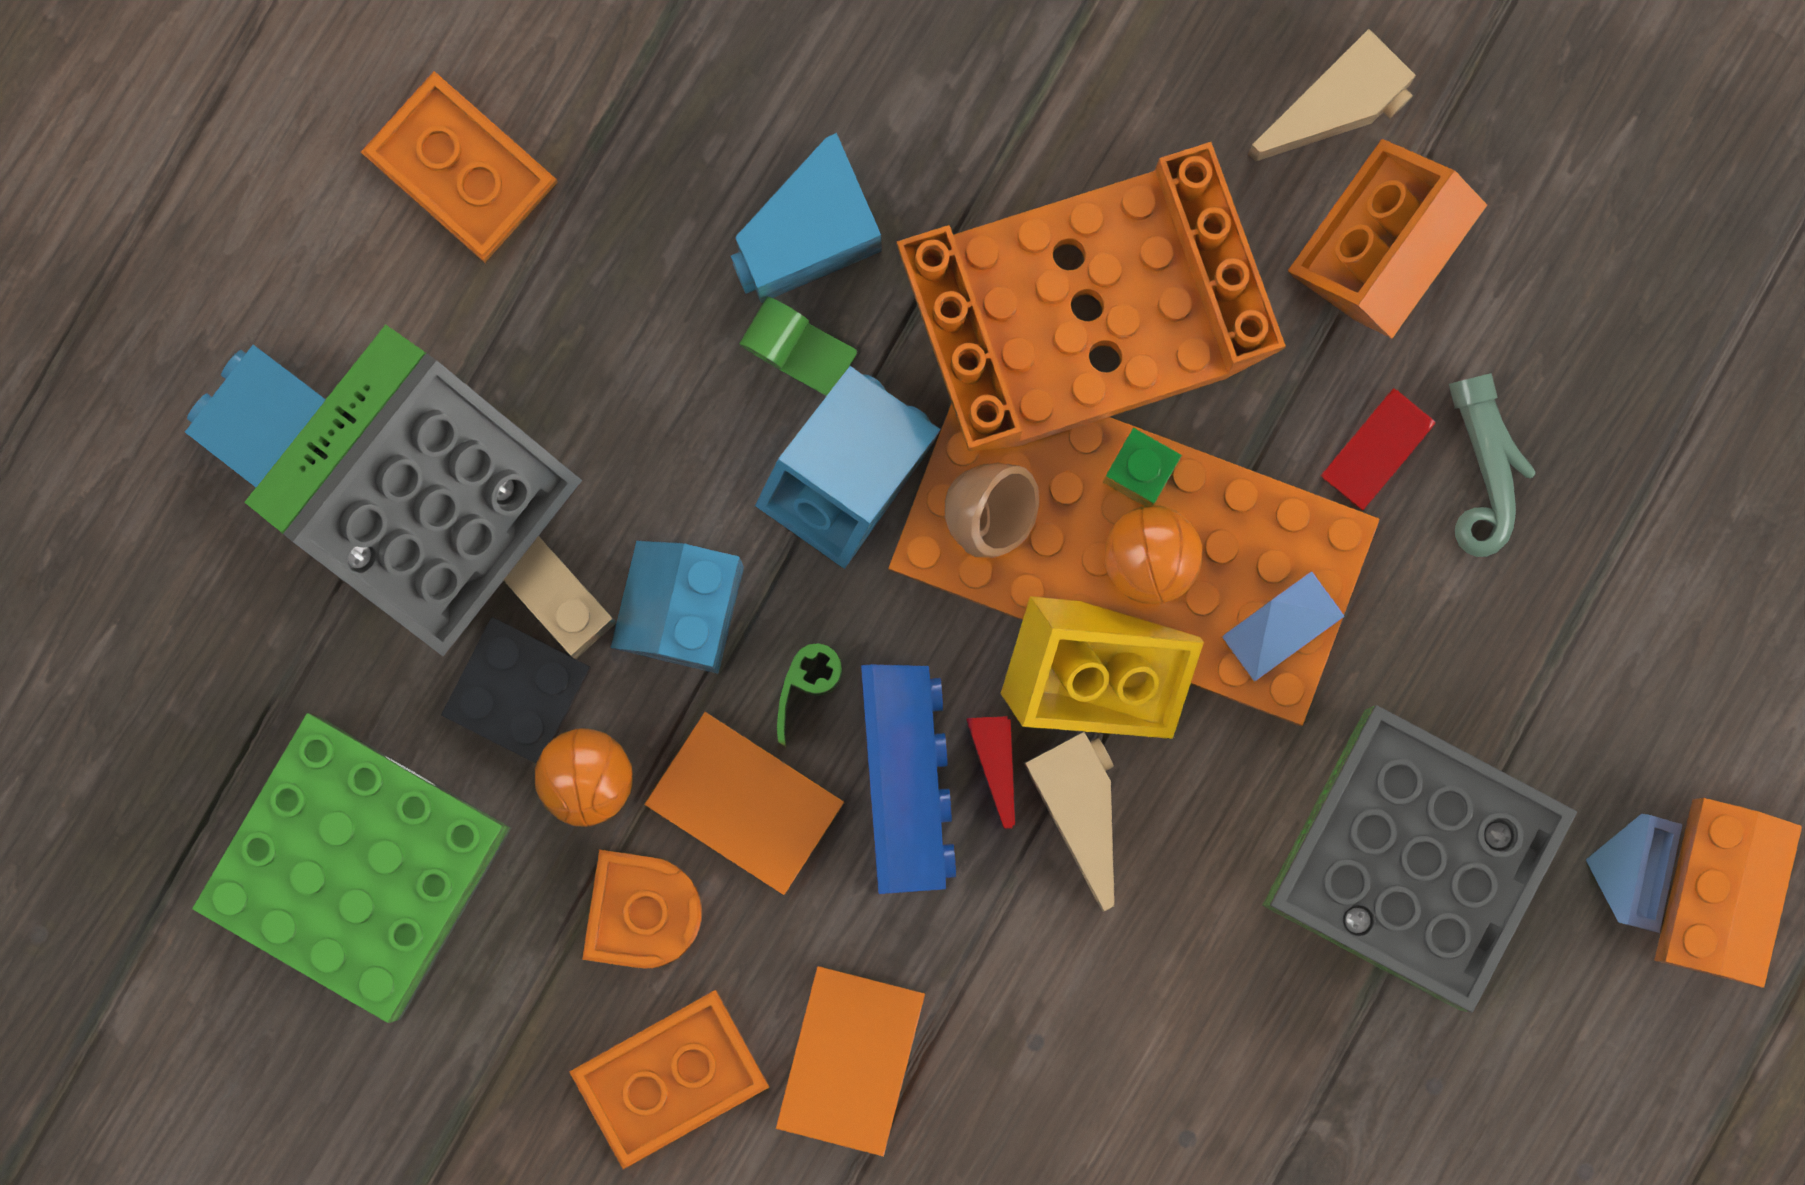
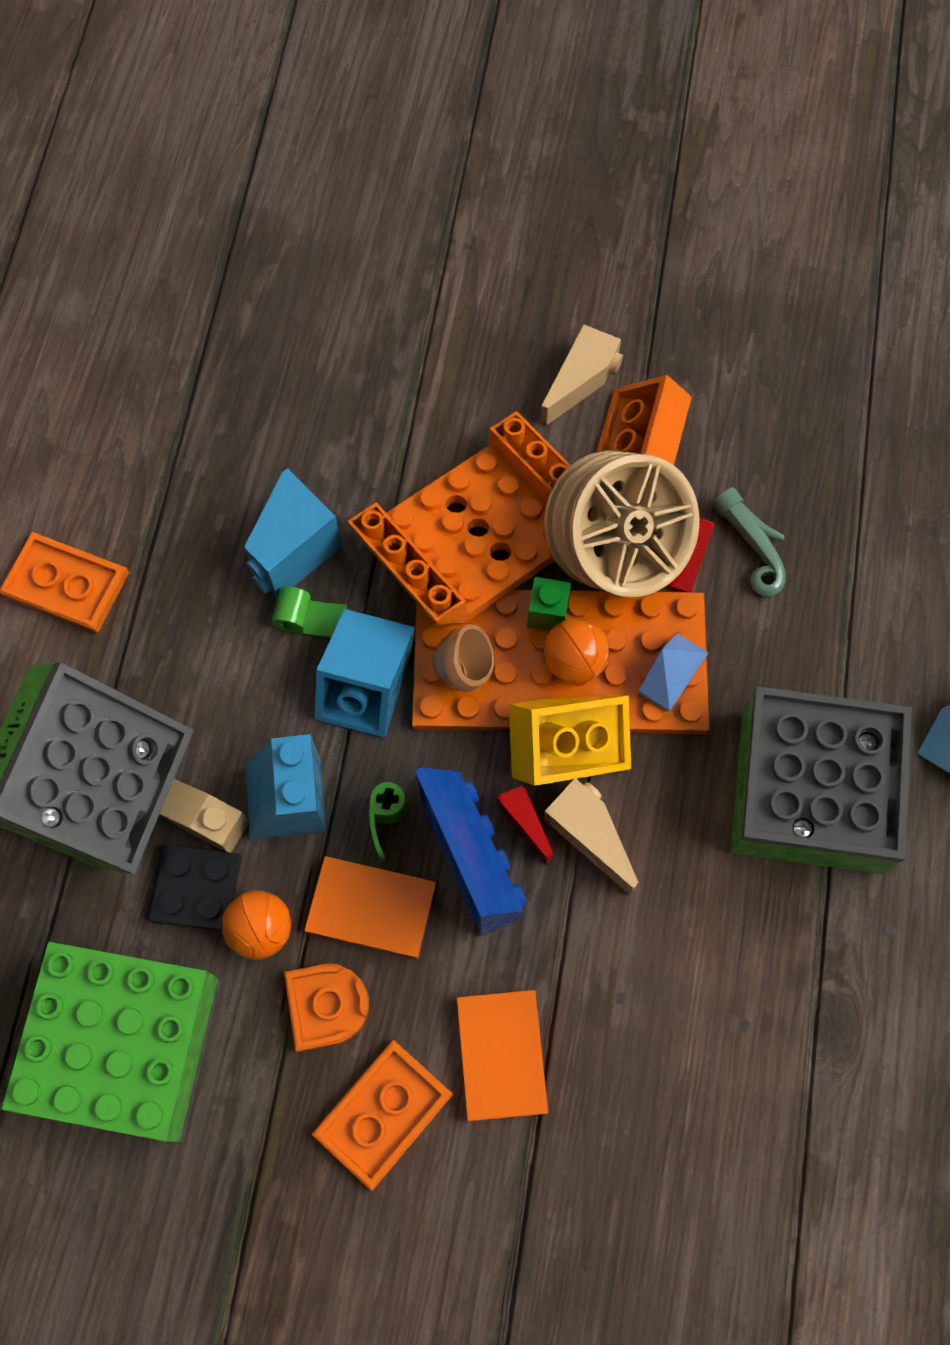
camera: 20 degrees left, 15 degrees down
(1289, 390) = (622, 522): none -> tan wheel

